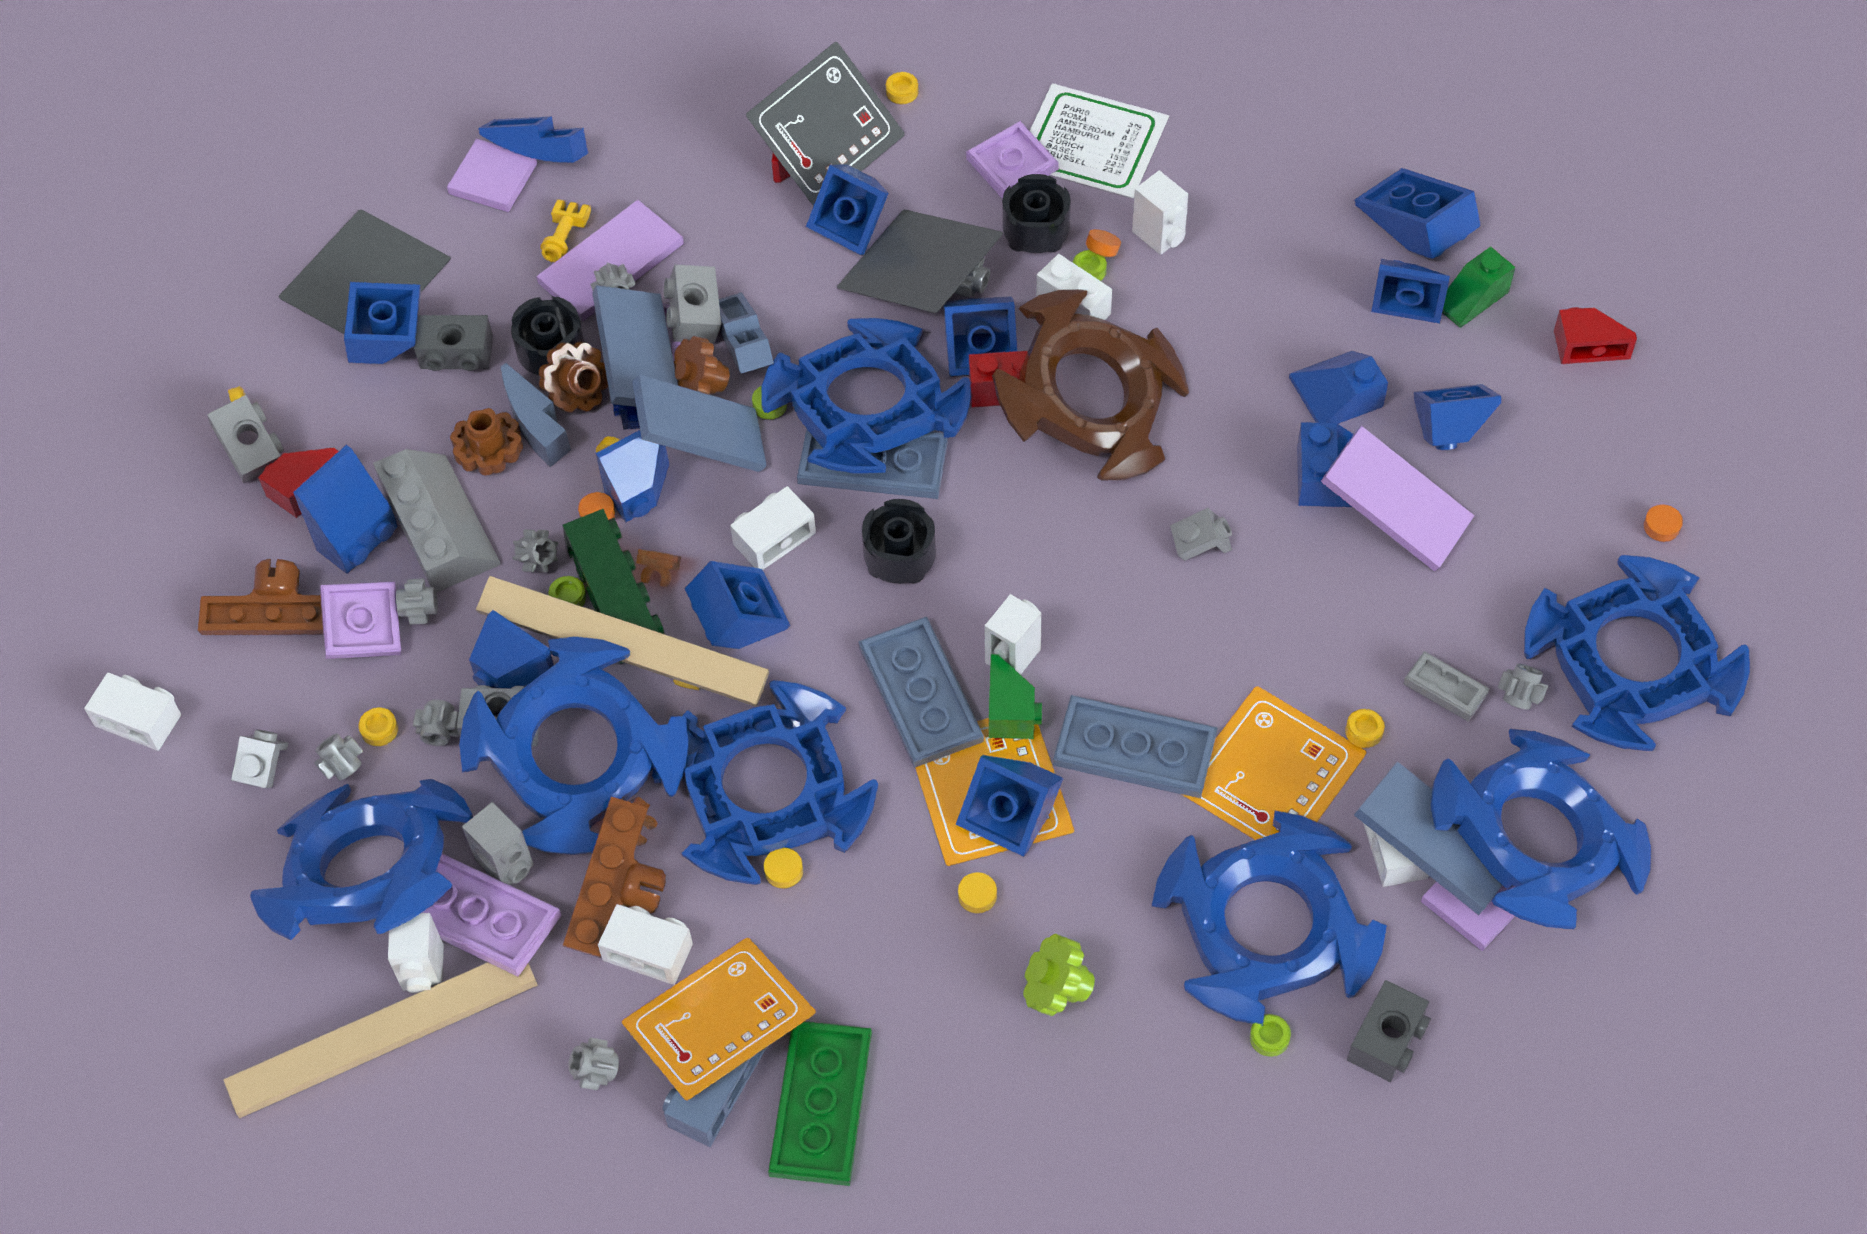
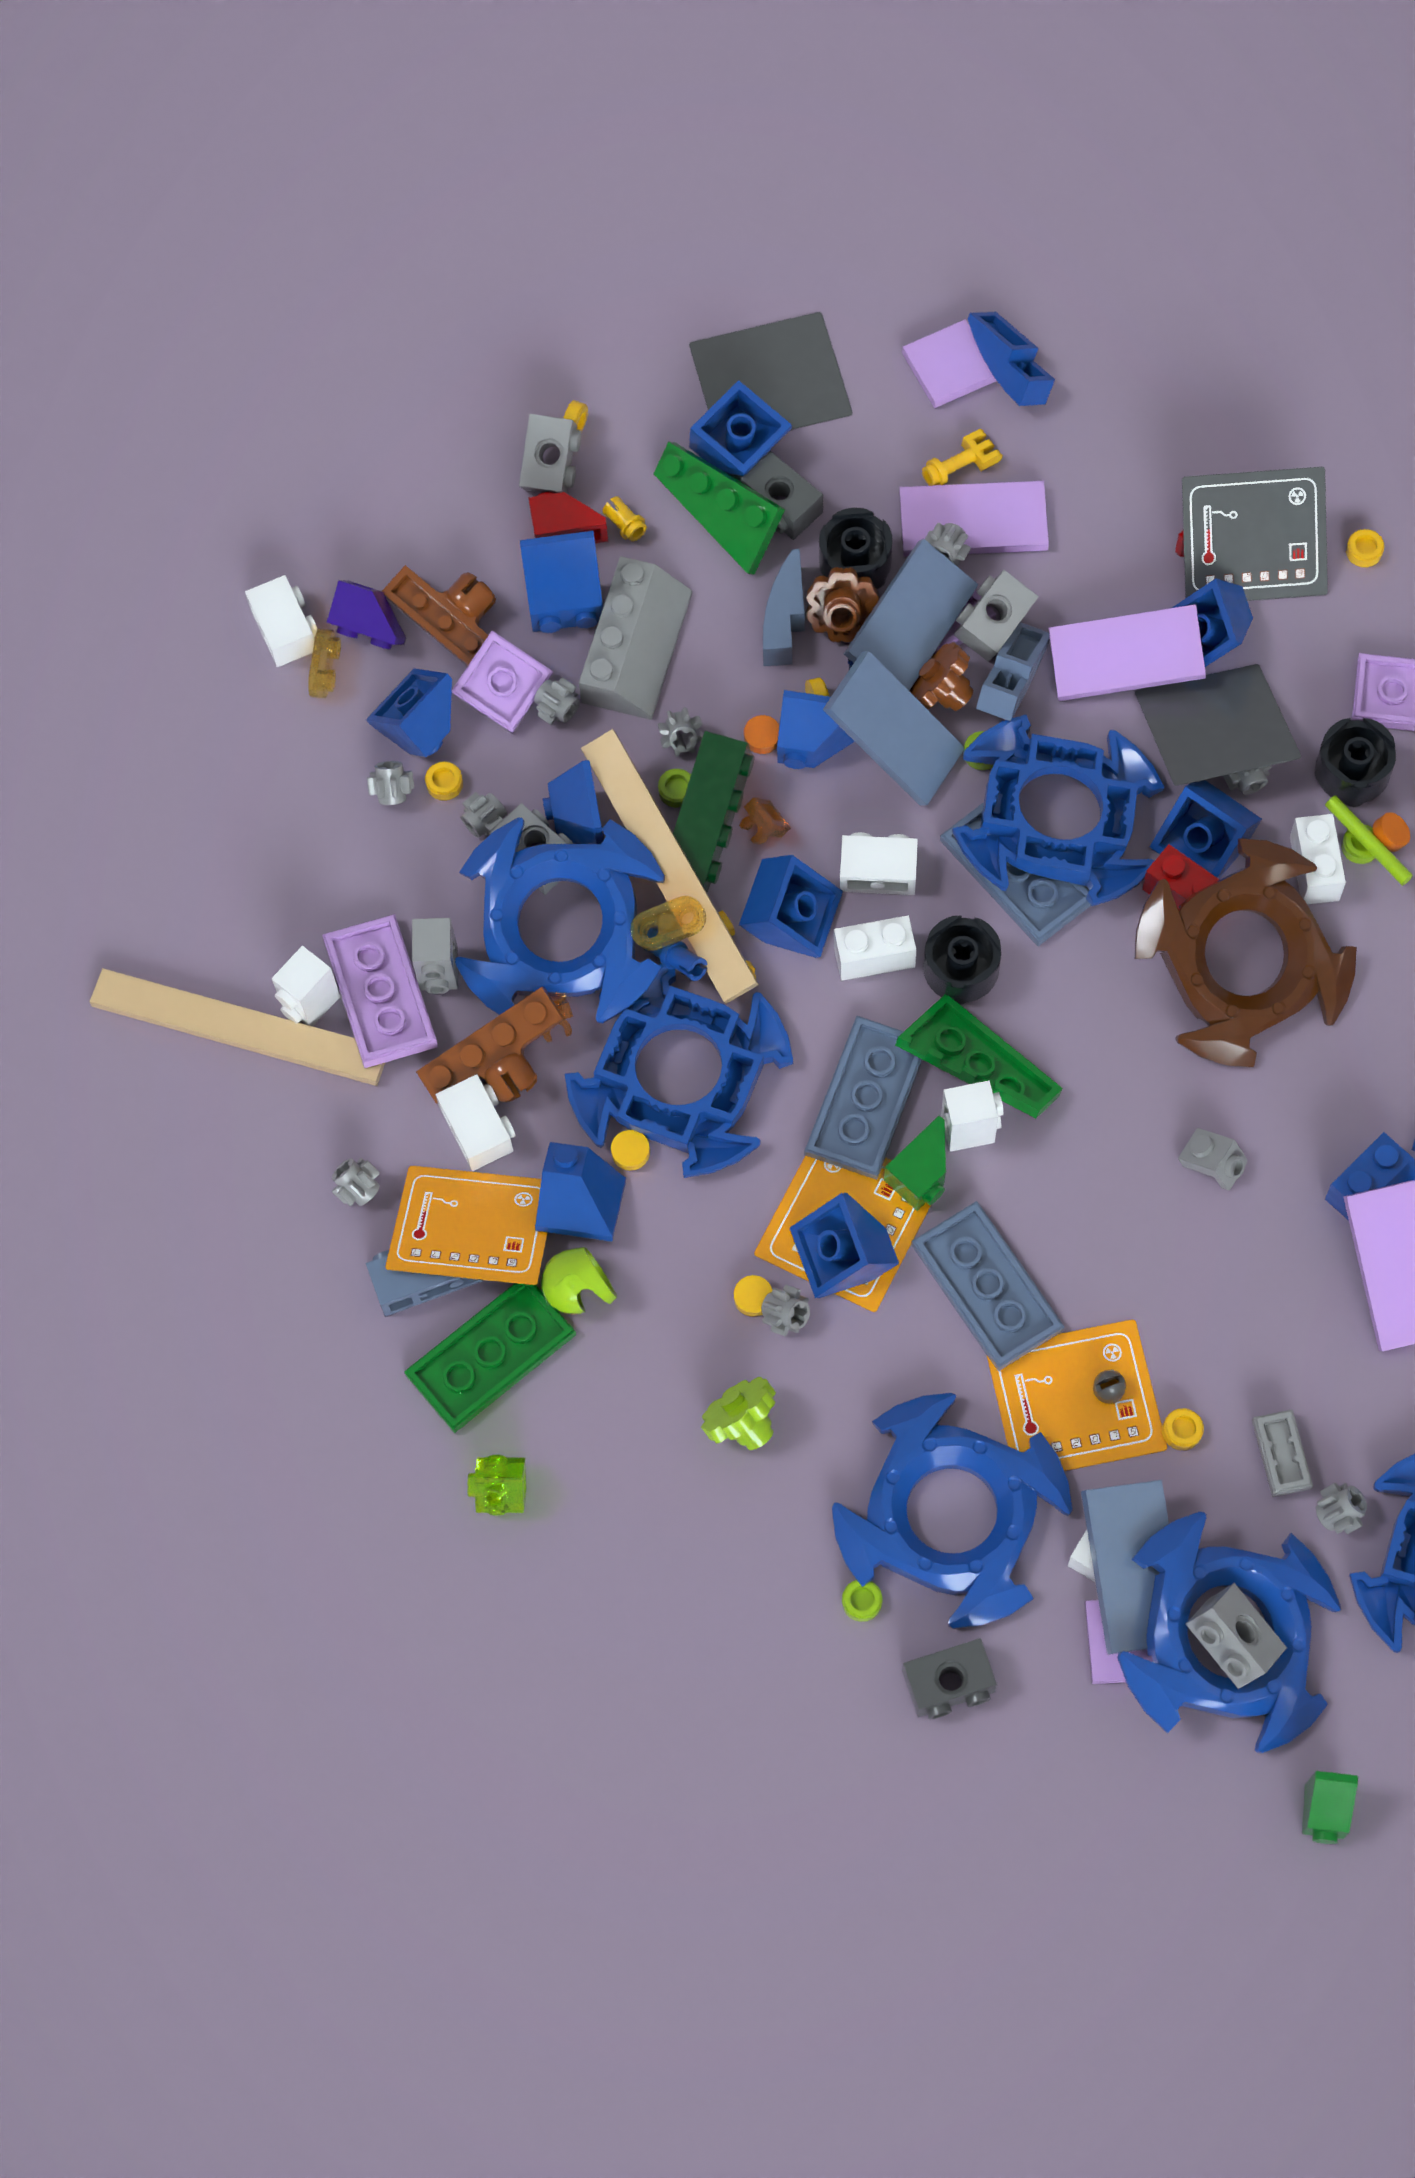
camera: 45 degrees right, 10 degrees up
(192, 705) = (321, 676): none -> clear yellow plate
(199, 652) = (365, 612): none -> dark purple slope
(257, 758) = (335, 734): bracket -> none
(310, 692) = (416, 712): none -> blue slope
(330, 826) = (331, 833): blue piece -> none
(357, 441) = (631, 525): none -> yellow pin
(418, 378) = (724, 506): none -> green wing
(486, 441) = (730, 605): dark orange plant -> none
(663, 679) = (669, 923): none -> clear yellow plate
(684, 701) = (680, 958): none -> blue pin
(778, 927) = (579, 1193): none -> blue slope
(810, 262) = (1127, 652): none -> lavender tile
(827, 584) = (874, 948): none -> white brick
(832, 989) = (568, 1275): none -> lime helmet
(928, 1186) = (499, 1485): none -> clear neon green brick
(965, 599) = (973, 1053): none -> green wing
(1014, 879) = (785, 1310): none -> light grey gear
(1096, 257) = (1368, 840): none -> lime bar
(1295, 744) = (1112, 1393): none -> dark grey hinge
(1554, 820) = (1236, 1636): none -> light grey brick
(1723, 883) = (1328, 1806): none -> green slope

